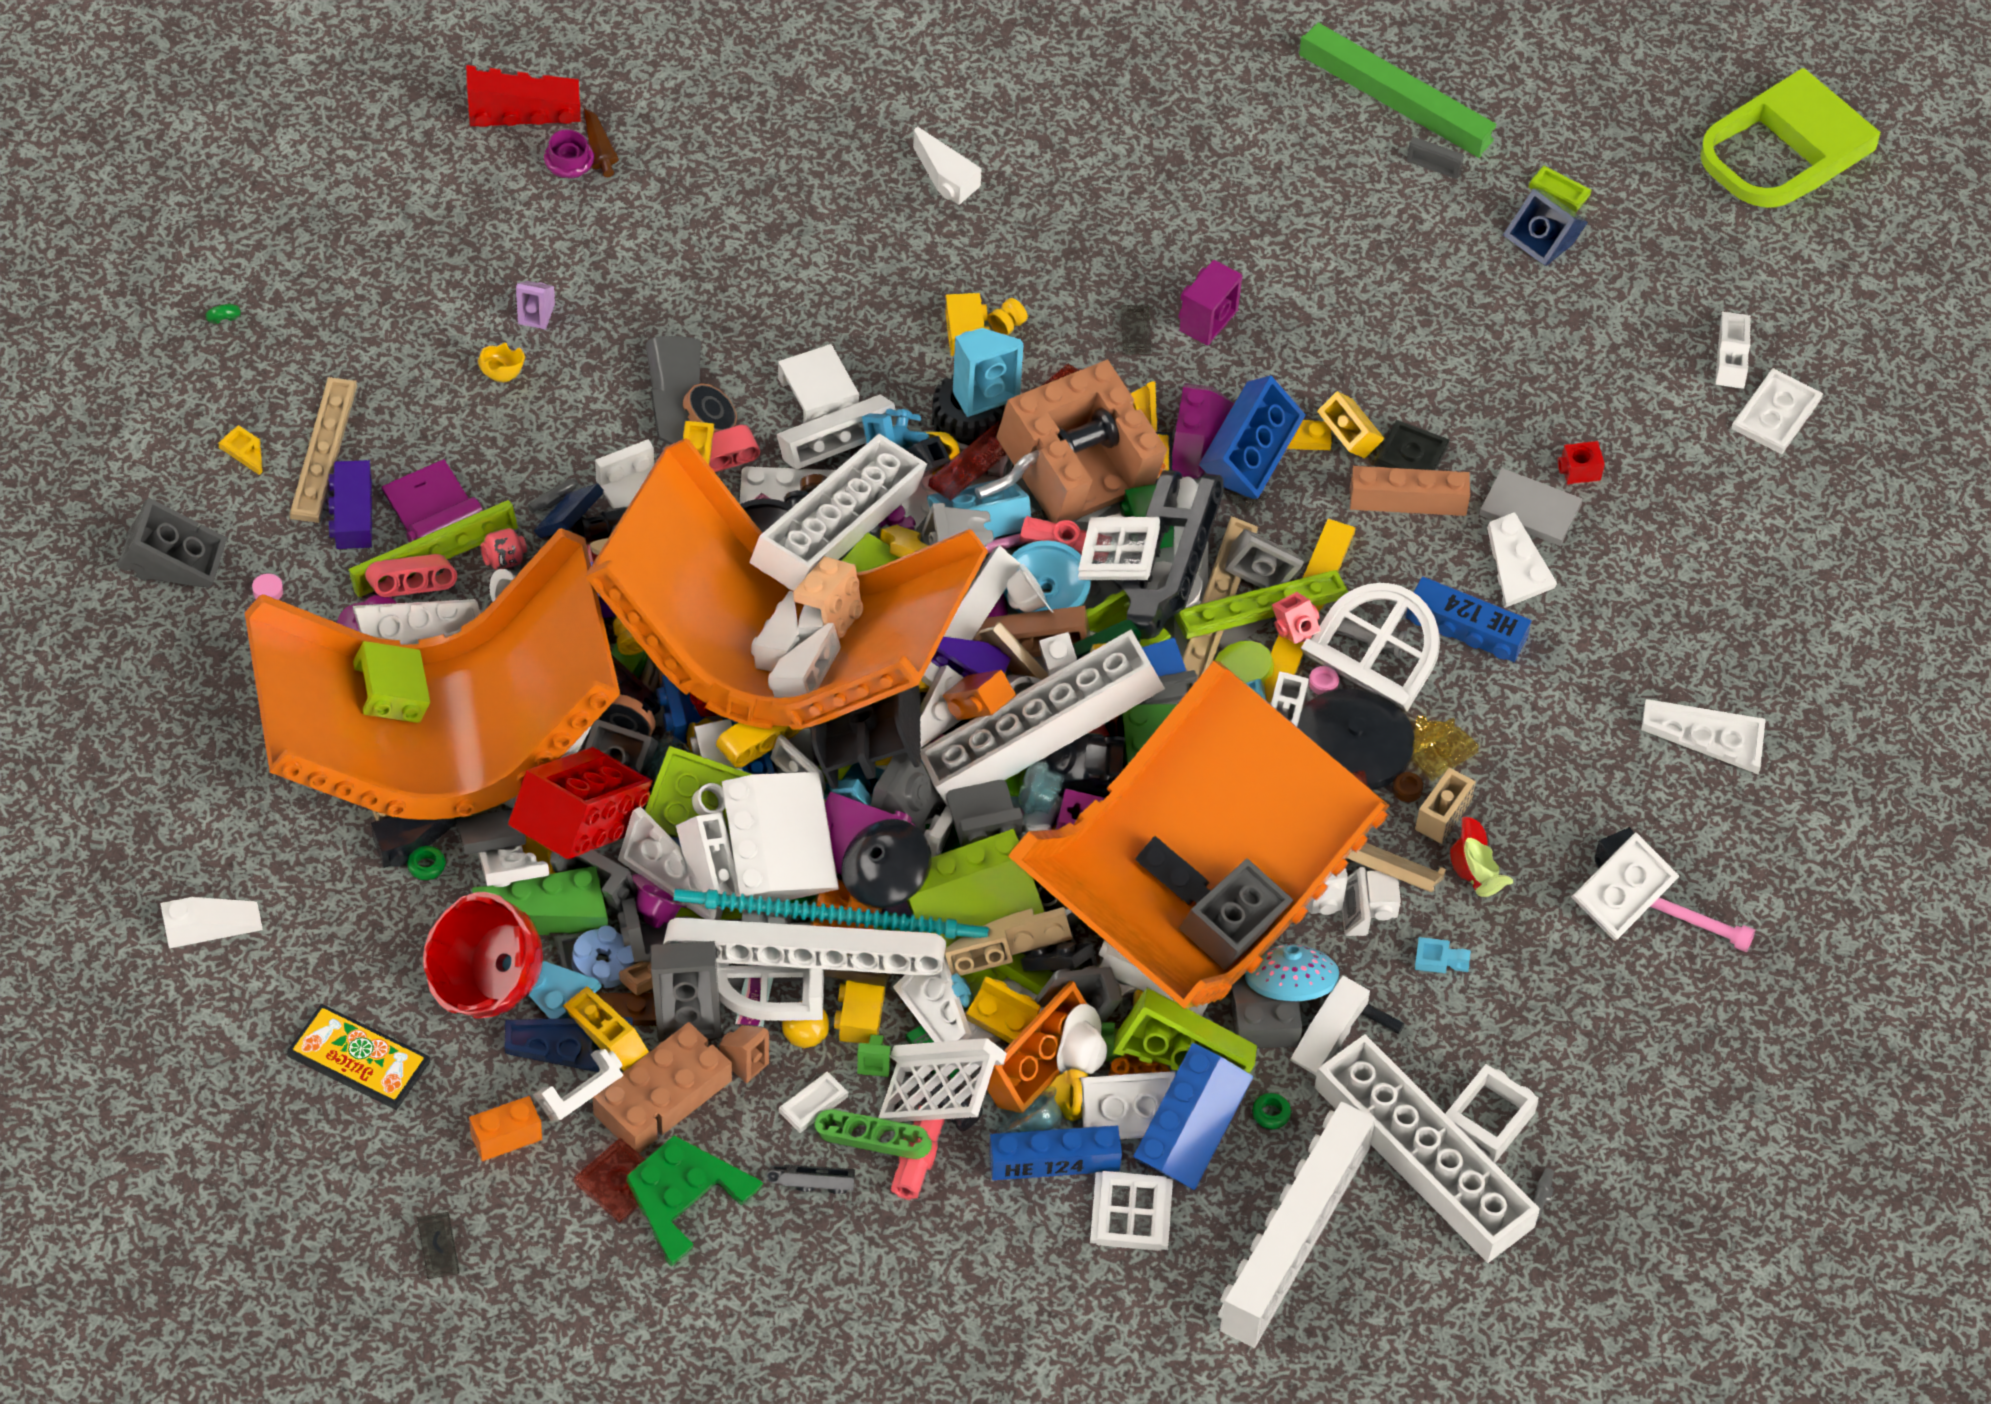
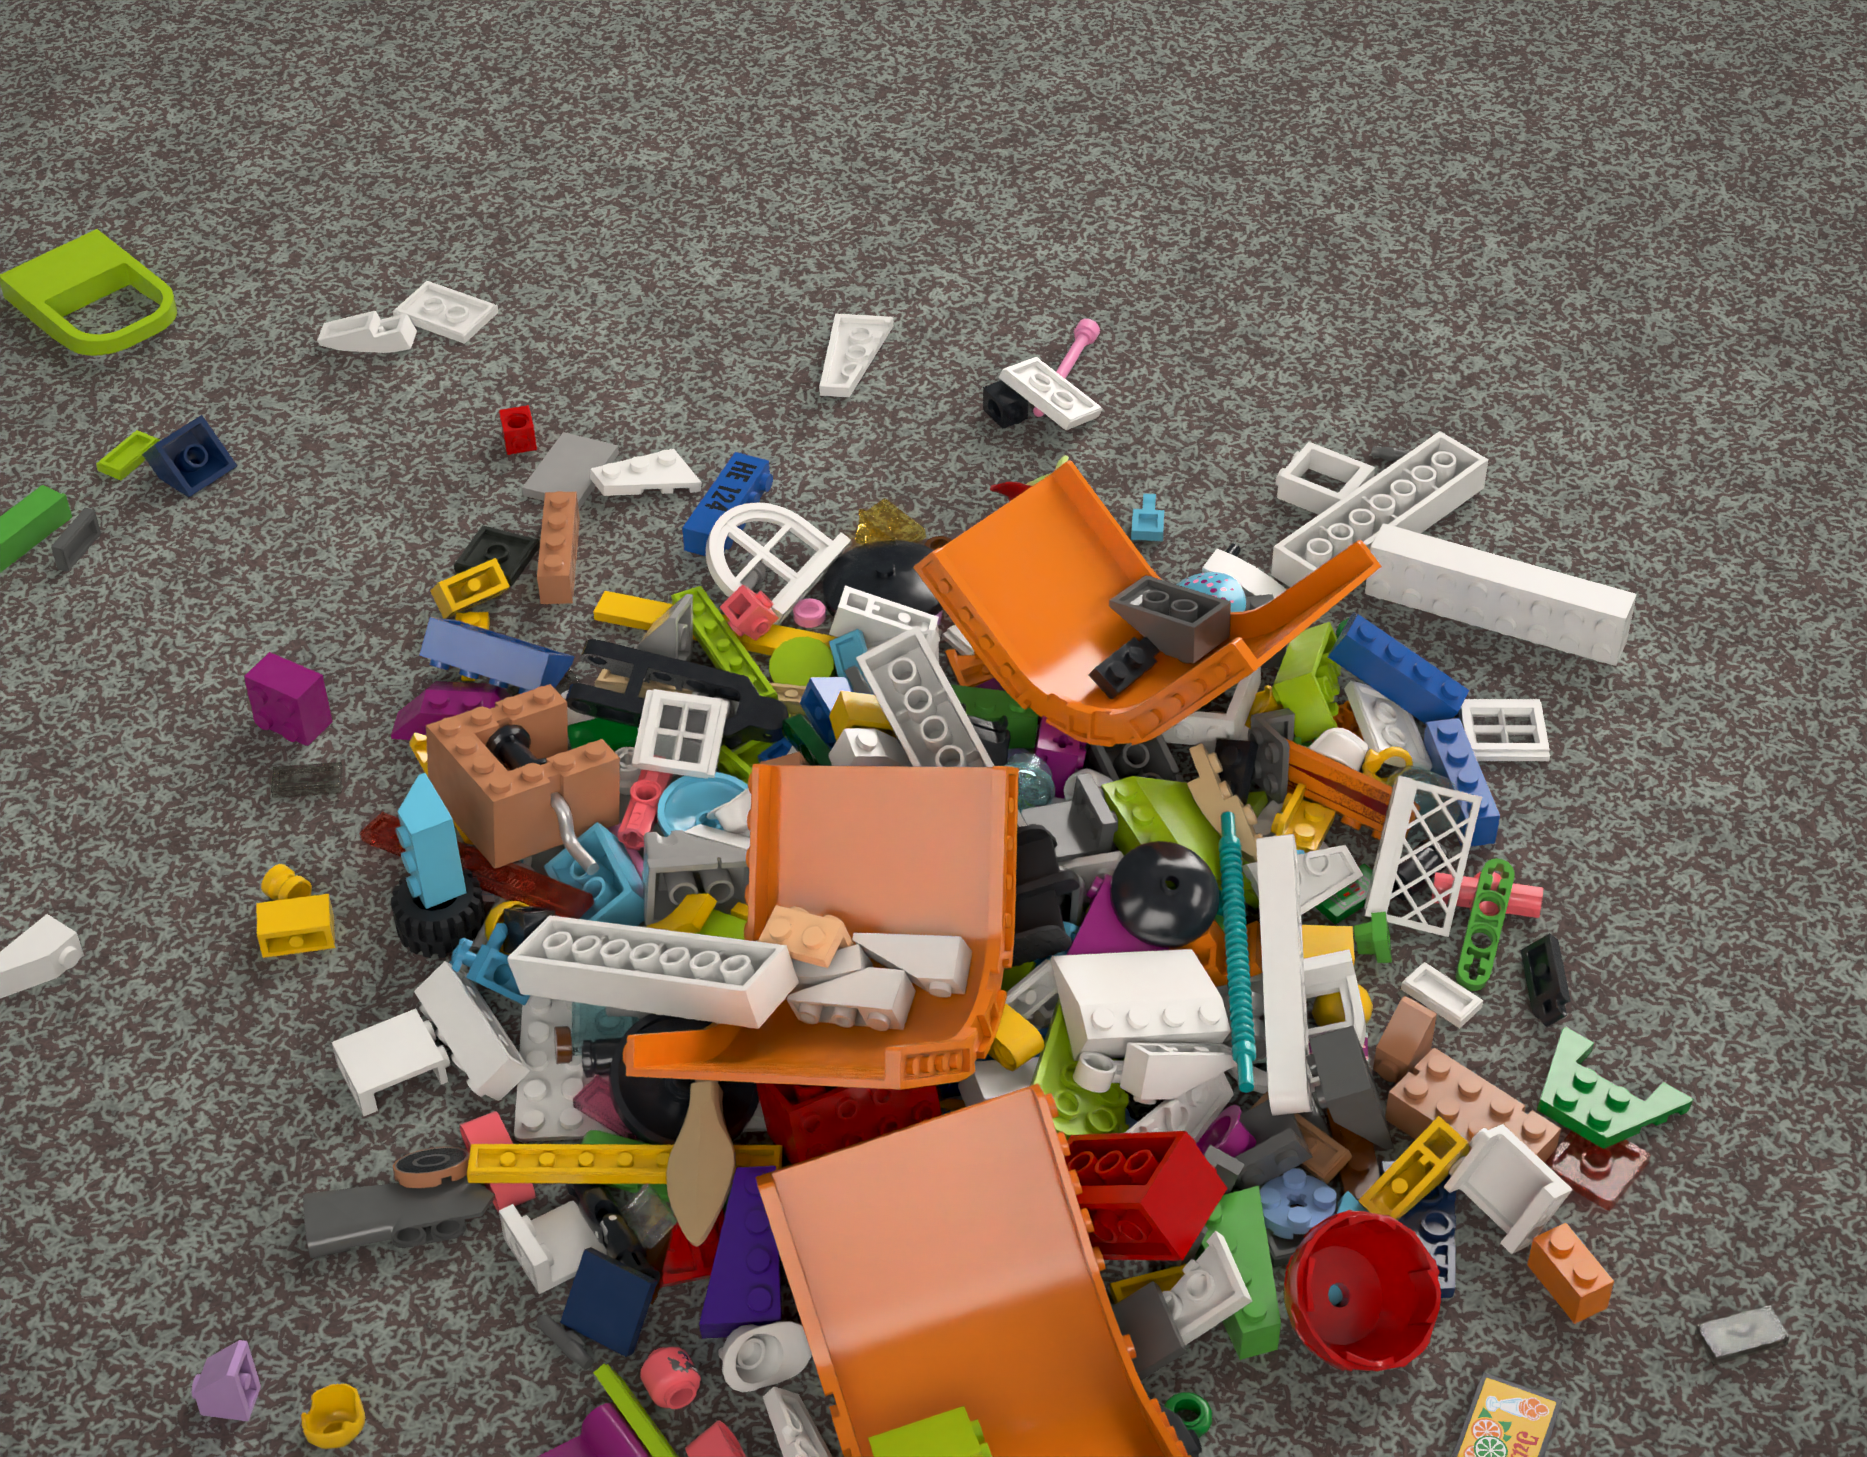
camera: 90 degrees left, 10 degrees down
(1445, 805) = (965, 505): tan brick -> none

